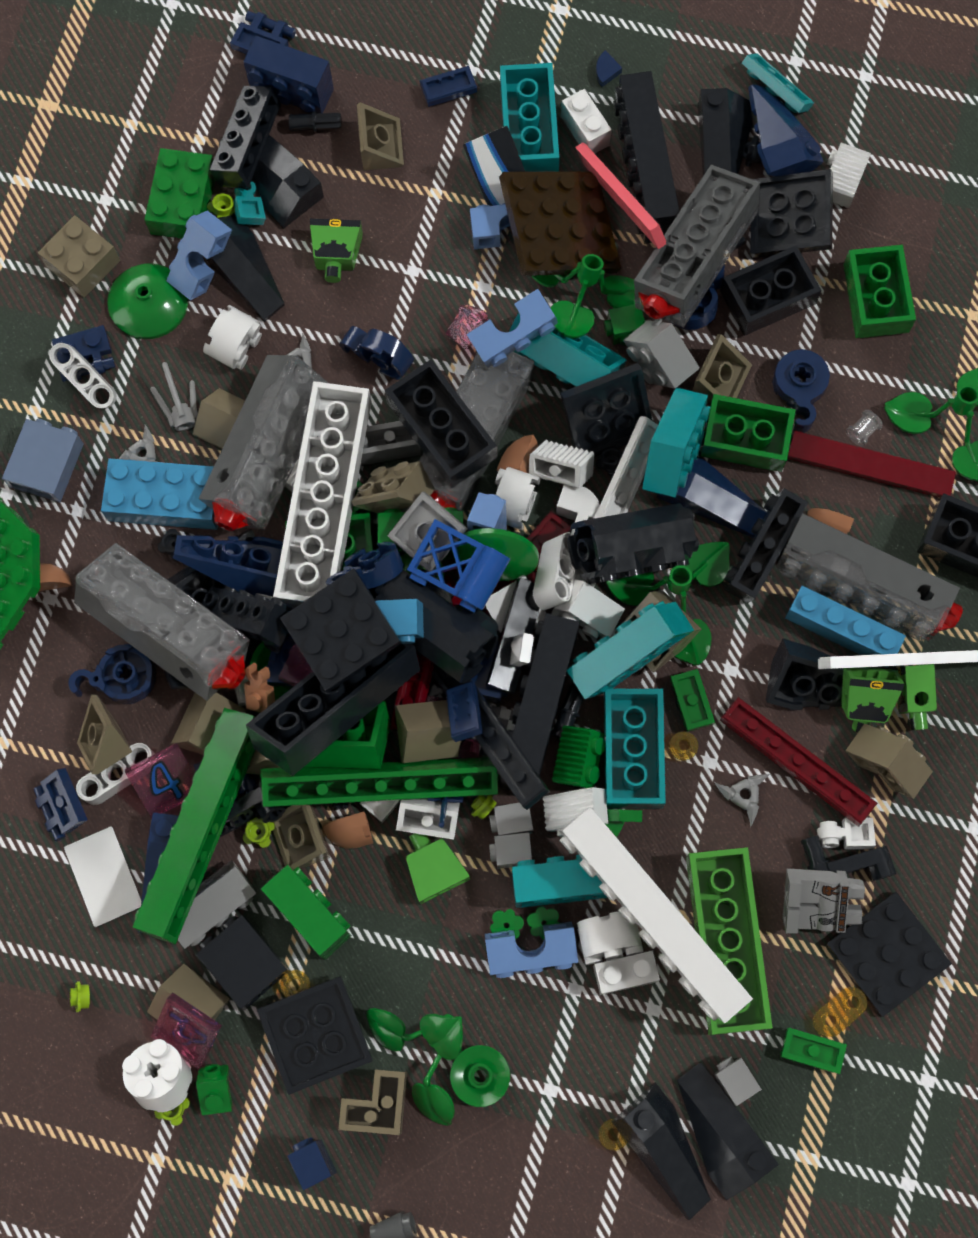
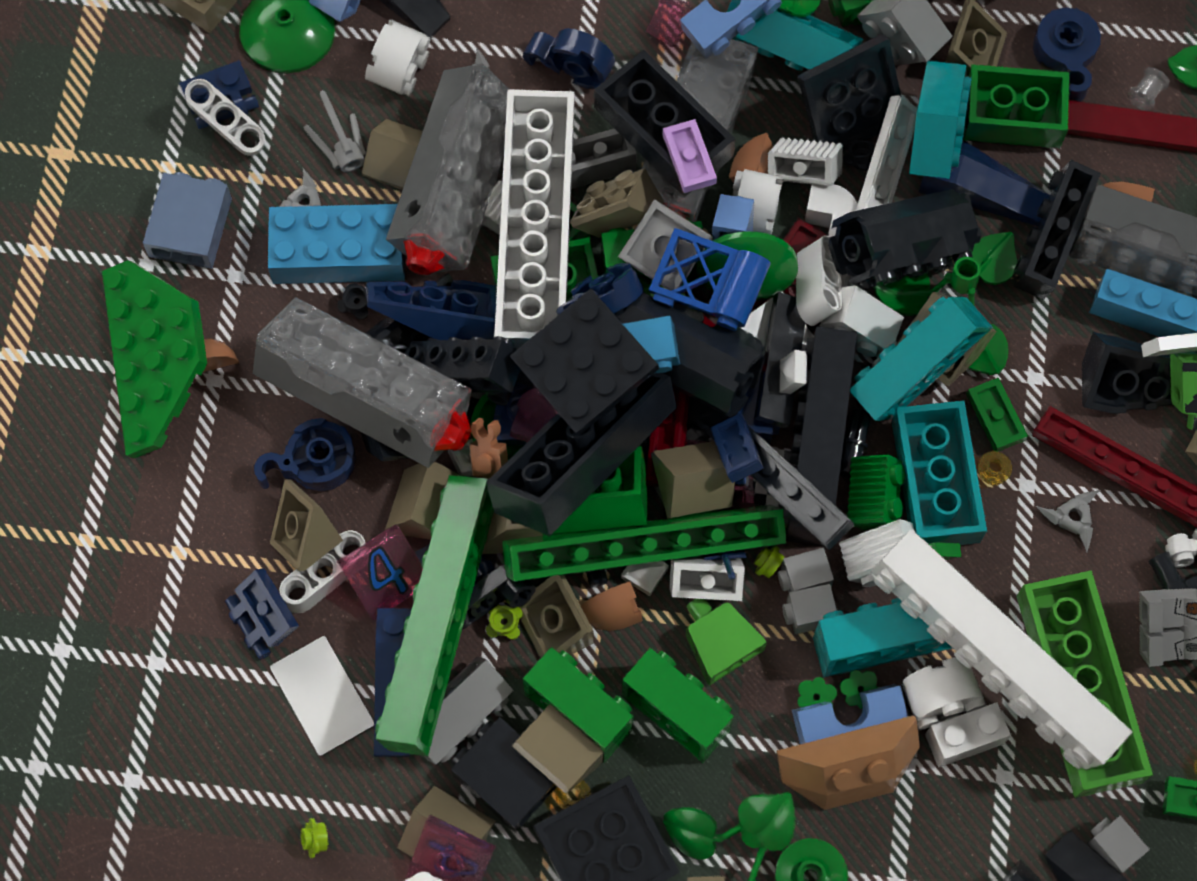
camera: 10 degrees left, 5 degrees down
(284, 950) = (559, 749): none -> dark tan slope
(388, 920) = (677, 704): none -> green brick
(454, 458) = (689, 156): none -> lavender plate
(525, 987) = (851, 764): none -> medium nougat wedge

